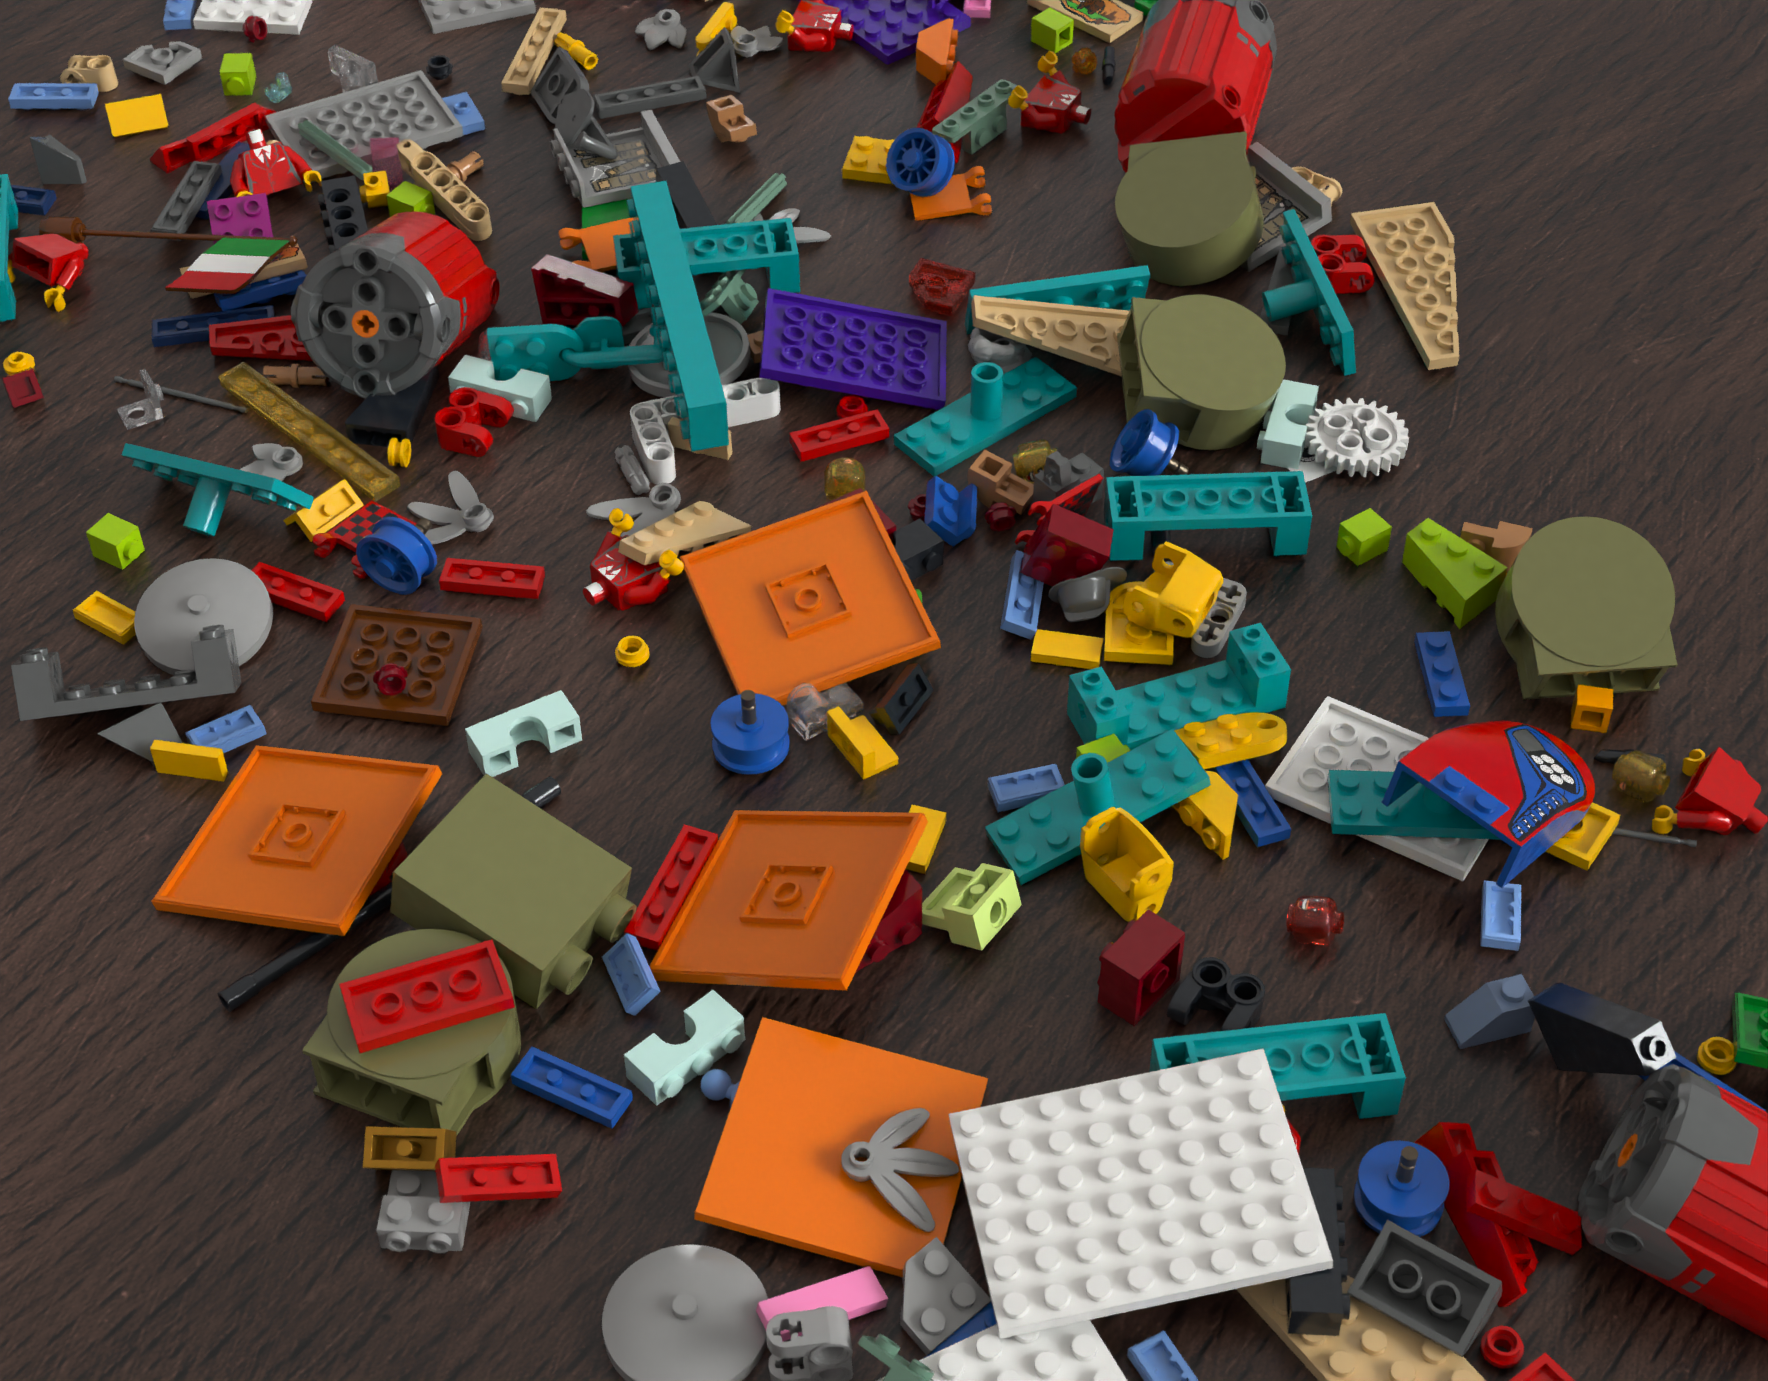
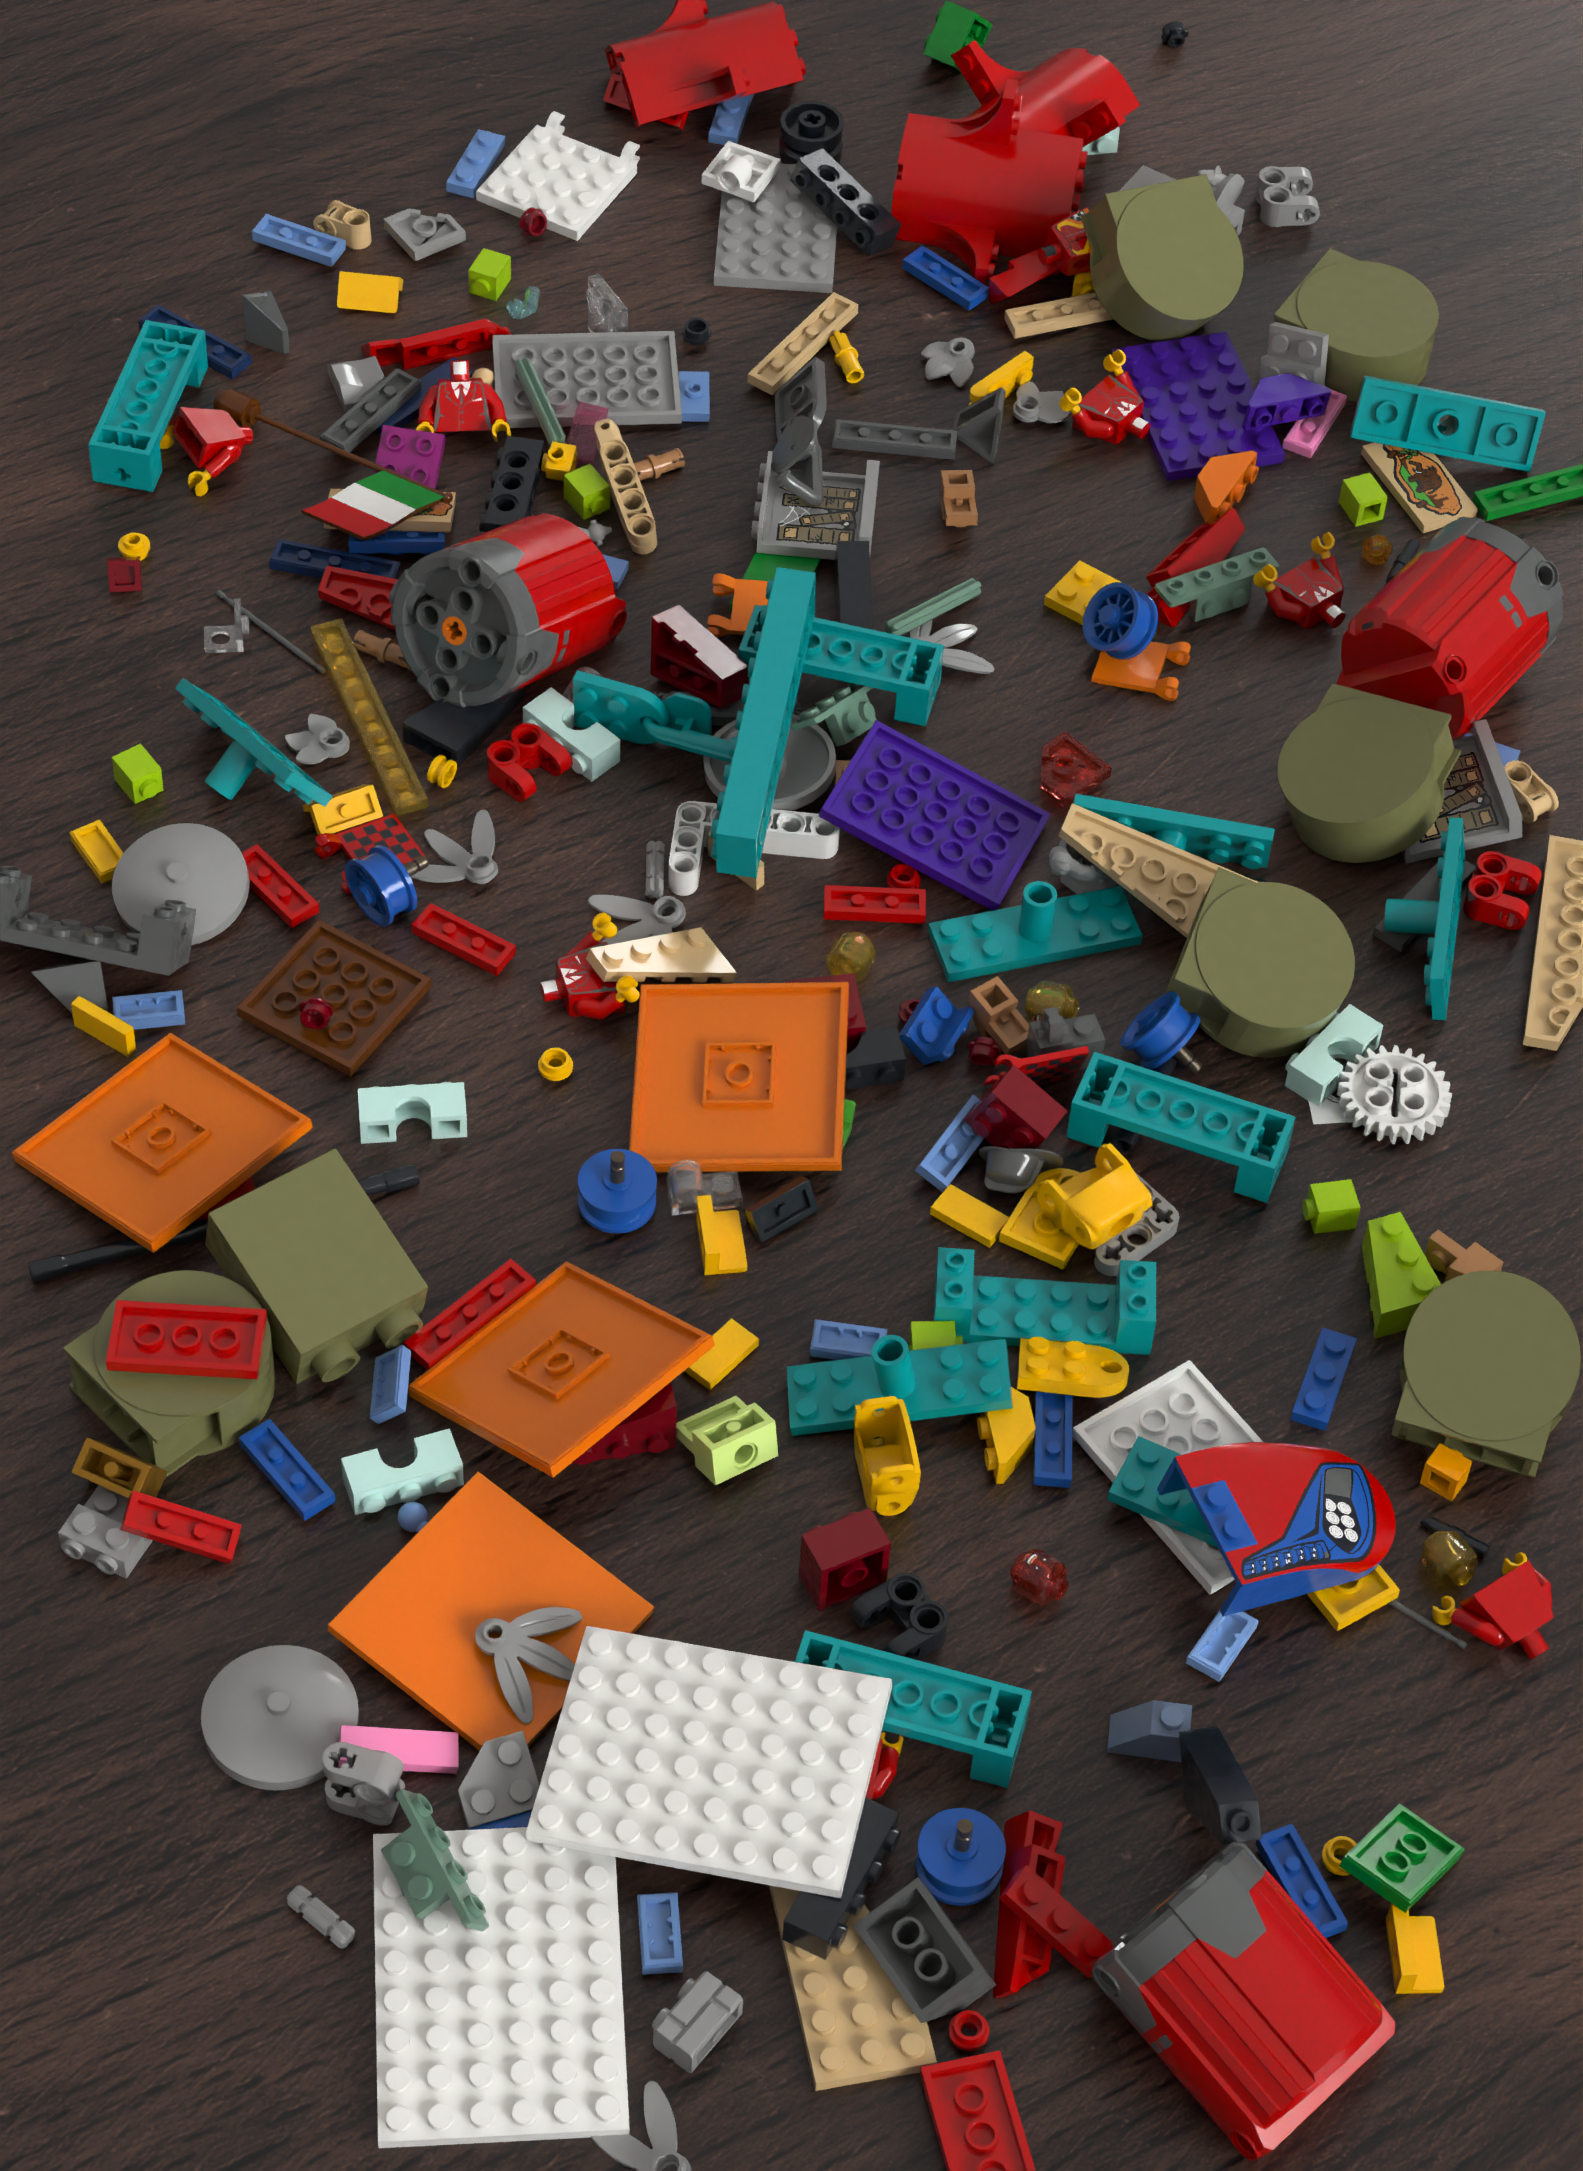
camera: 20 degrees right, 5 degrees up
(158, 182) = (354, 379): none -> light grey slope

